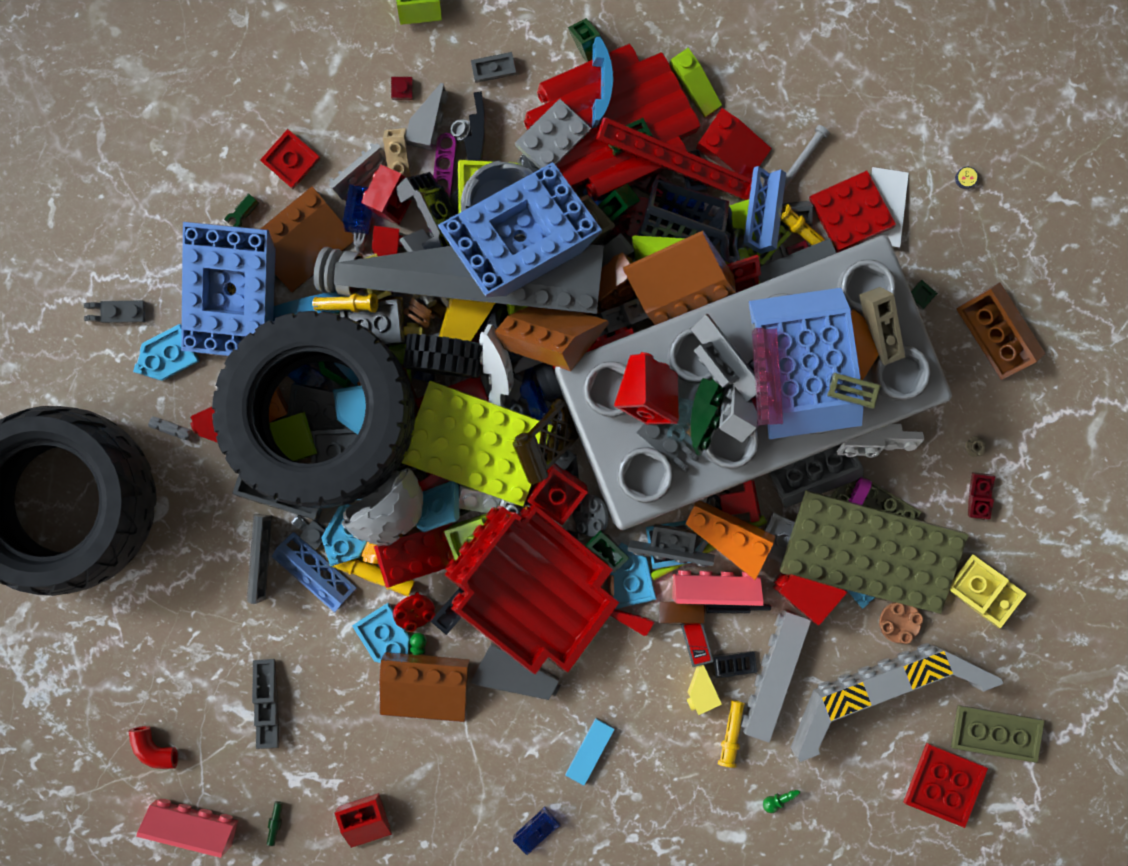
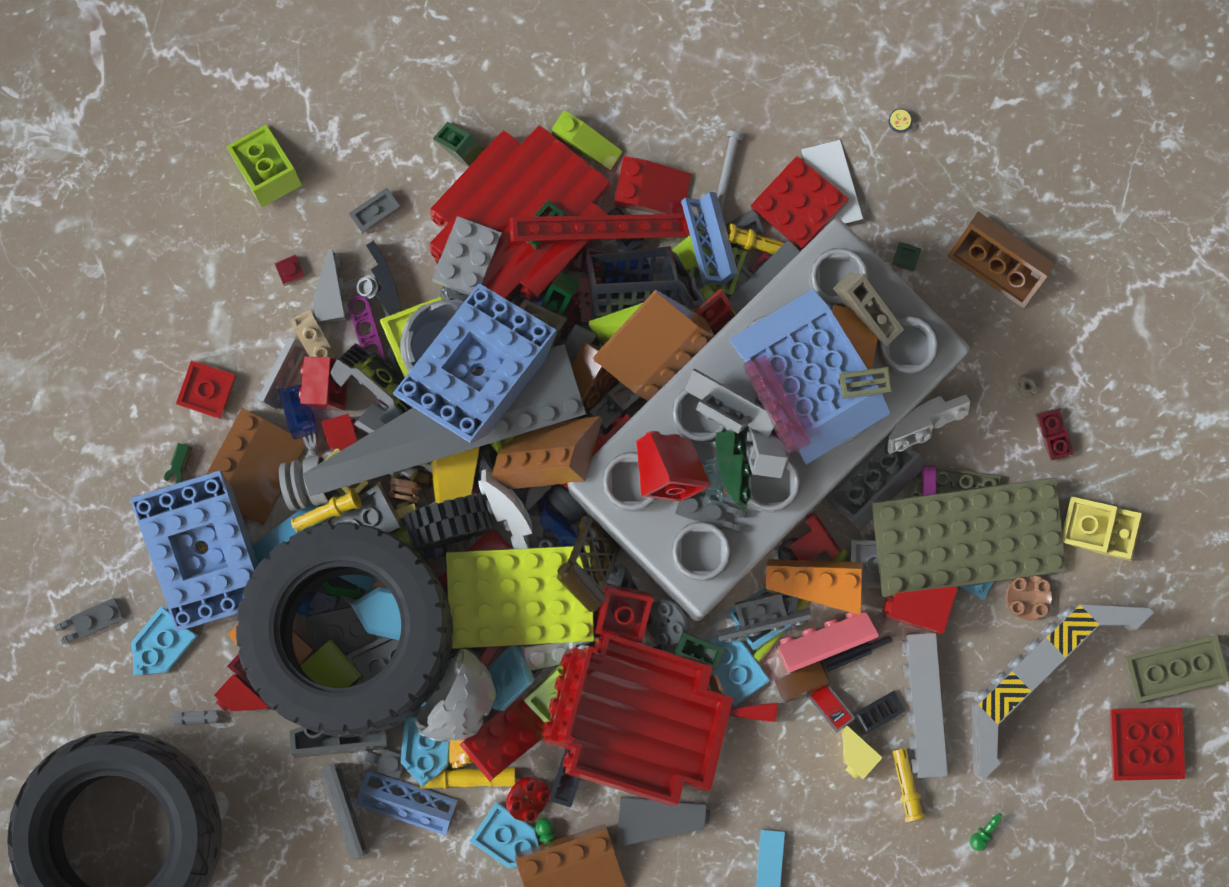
camera: 20 degrees left, 5 degrees down
(602, 59) = (480, 159): dark azure slope -> none

